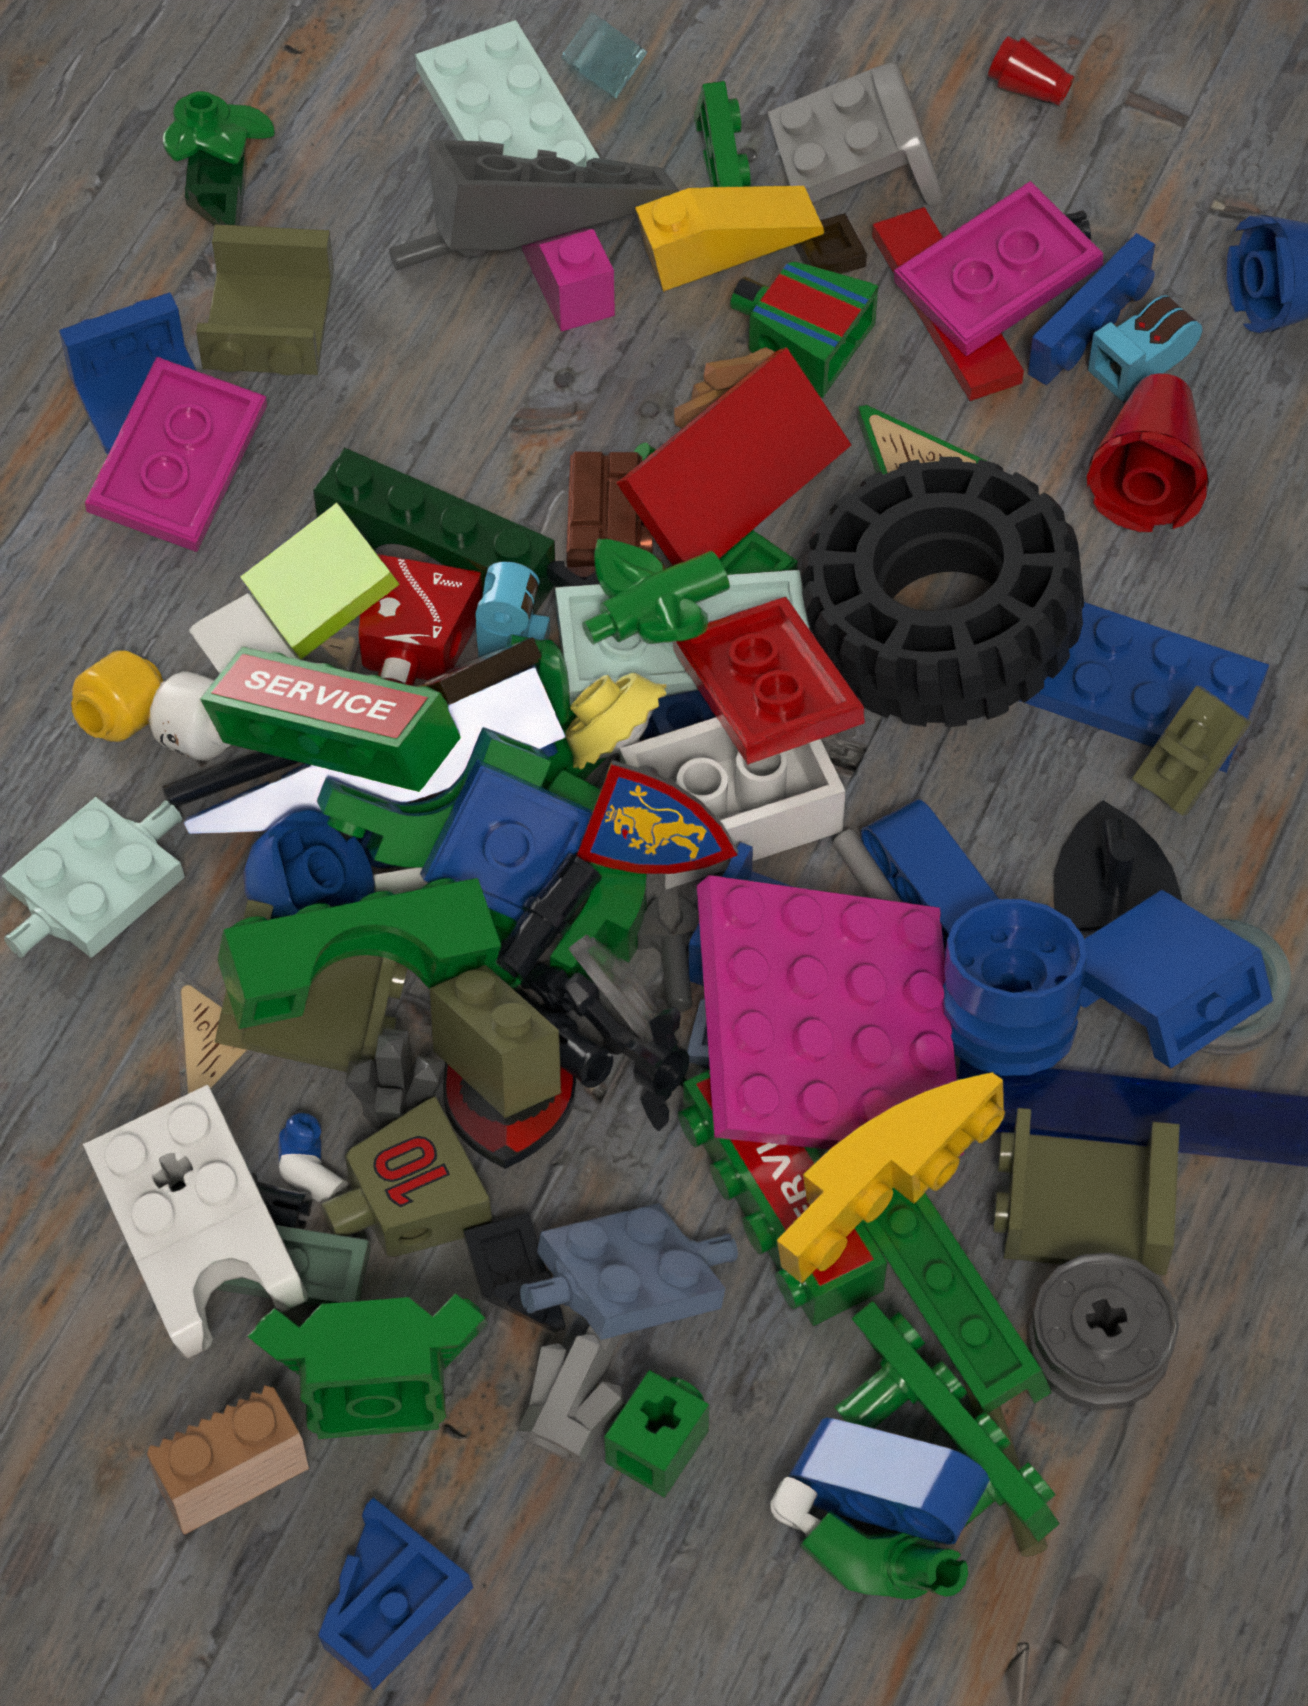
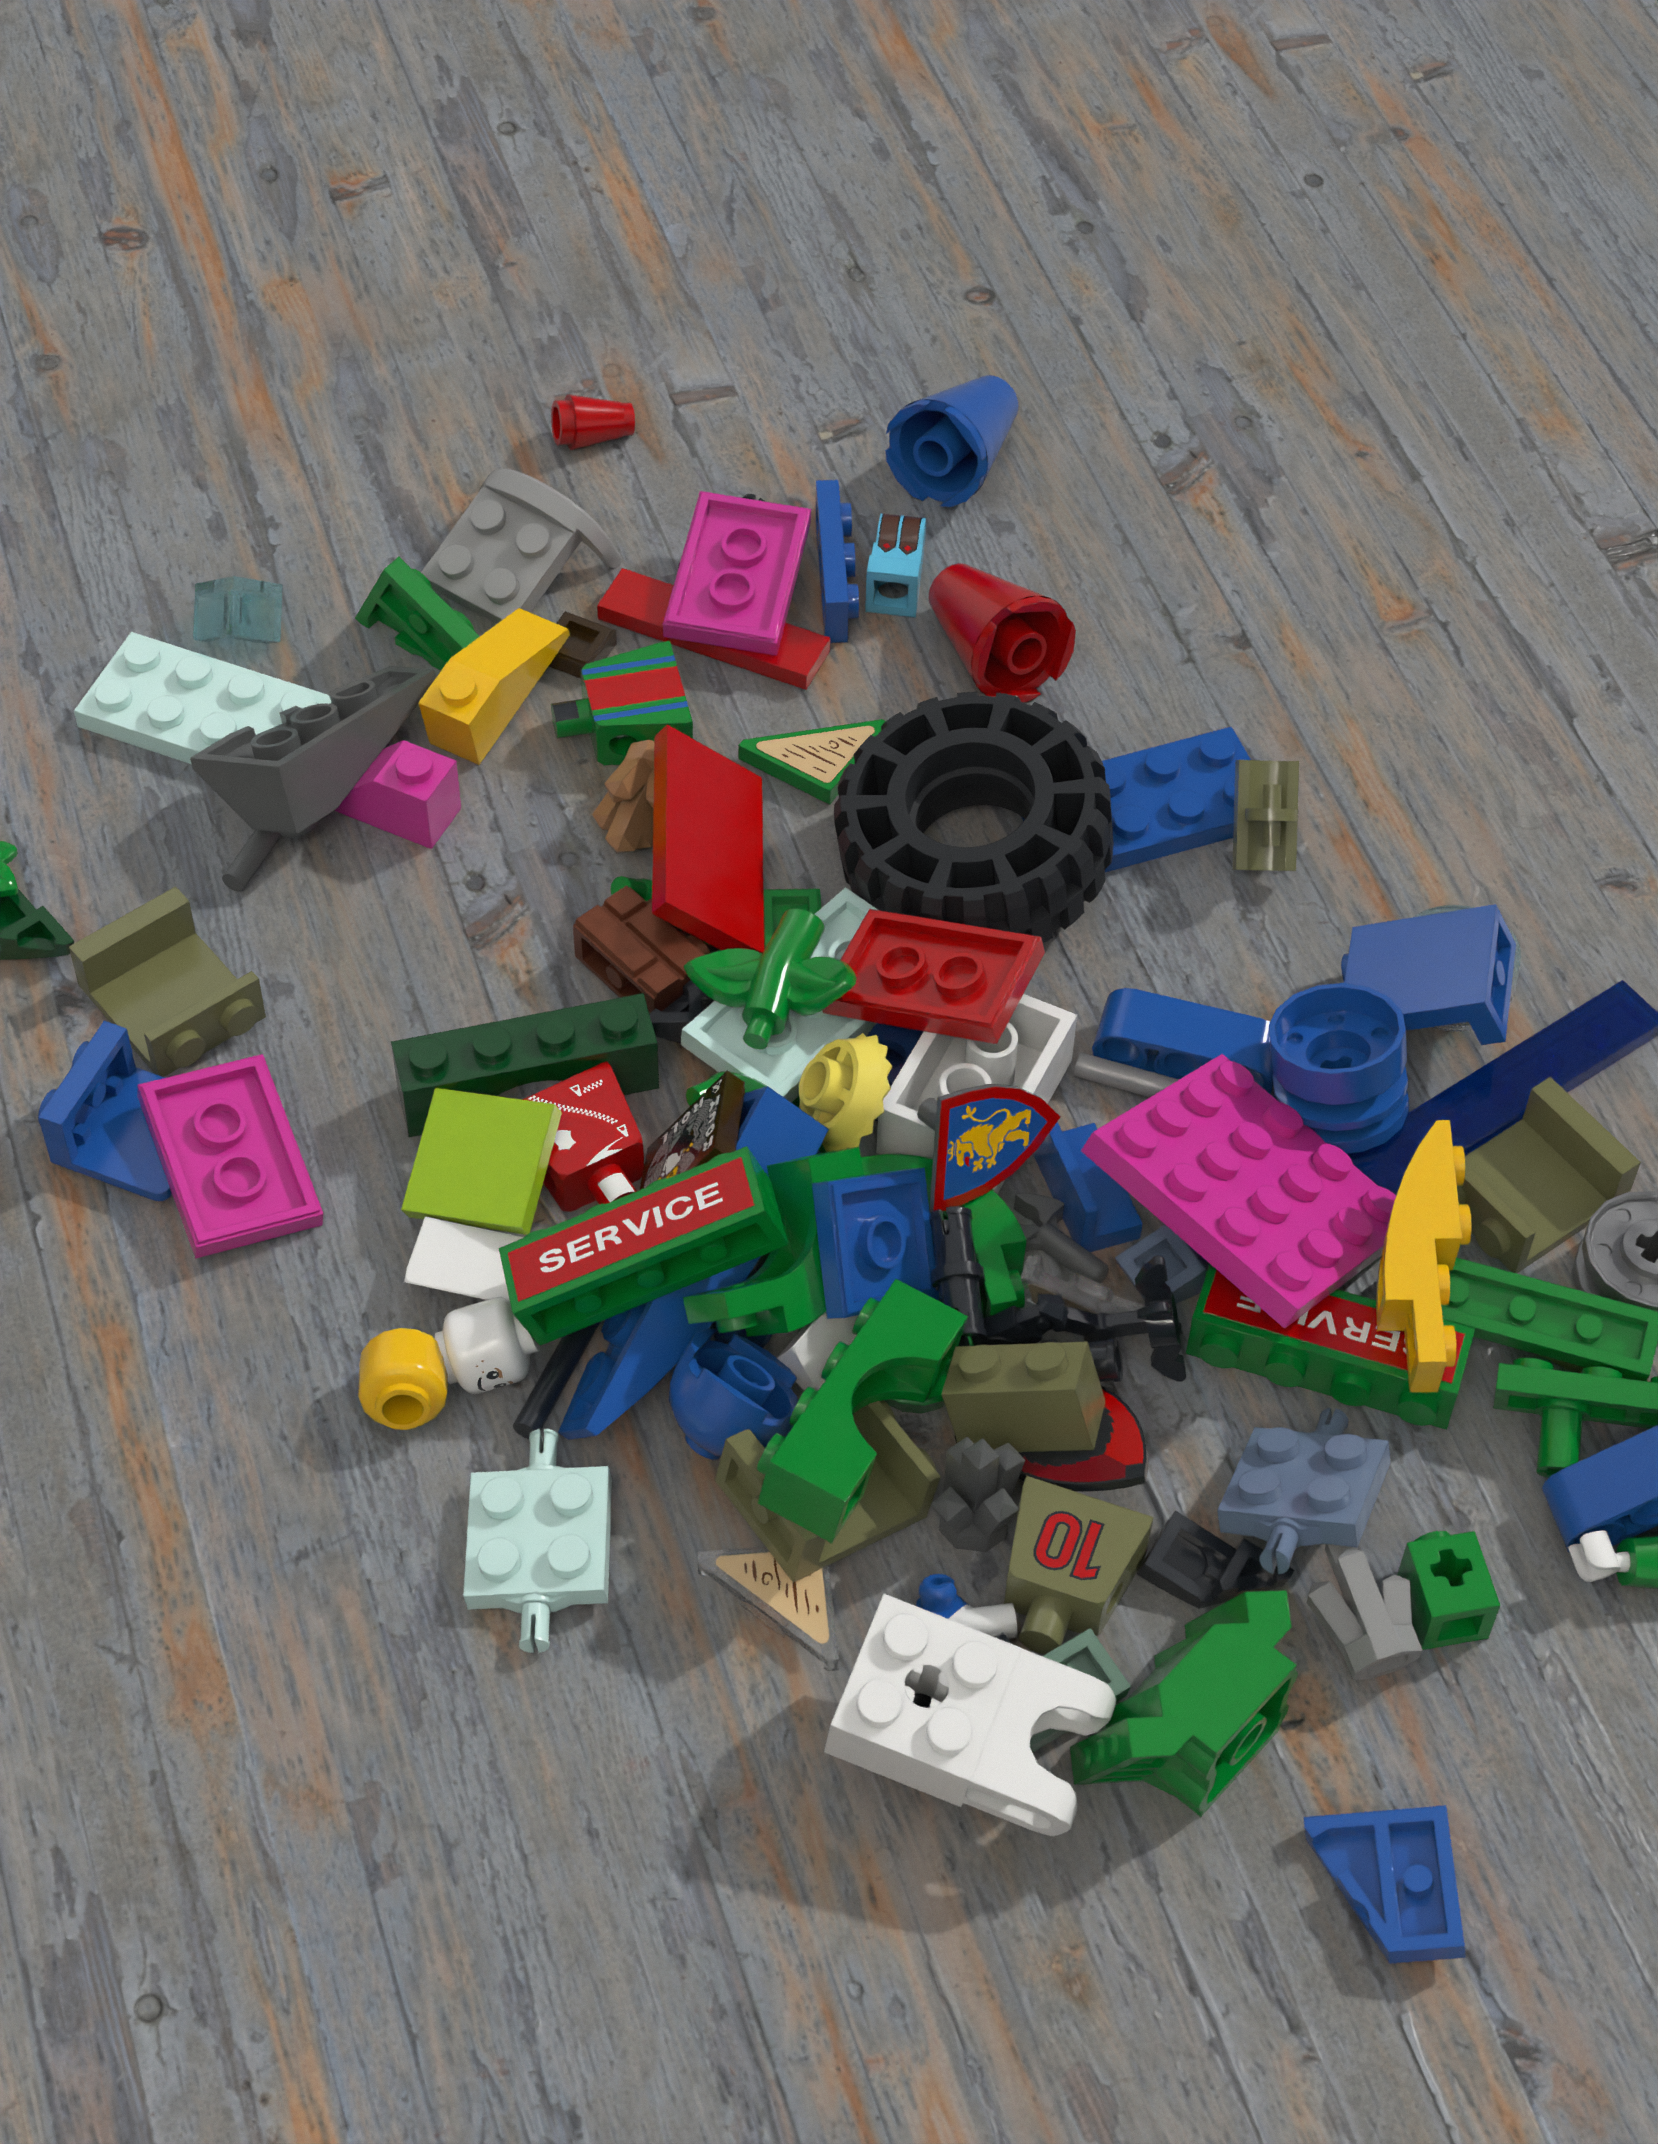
camera: 45 degrees left, 5 degrees down
(228, 1459) = (1174, 1884): medium nougat brick -> none
(508, 607) = (658, 1075): medium azure leg -> none
(1109, 869) = (1282, 948): black shield -> none

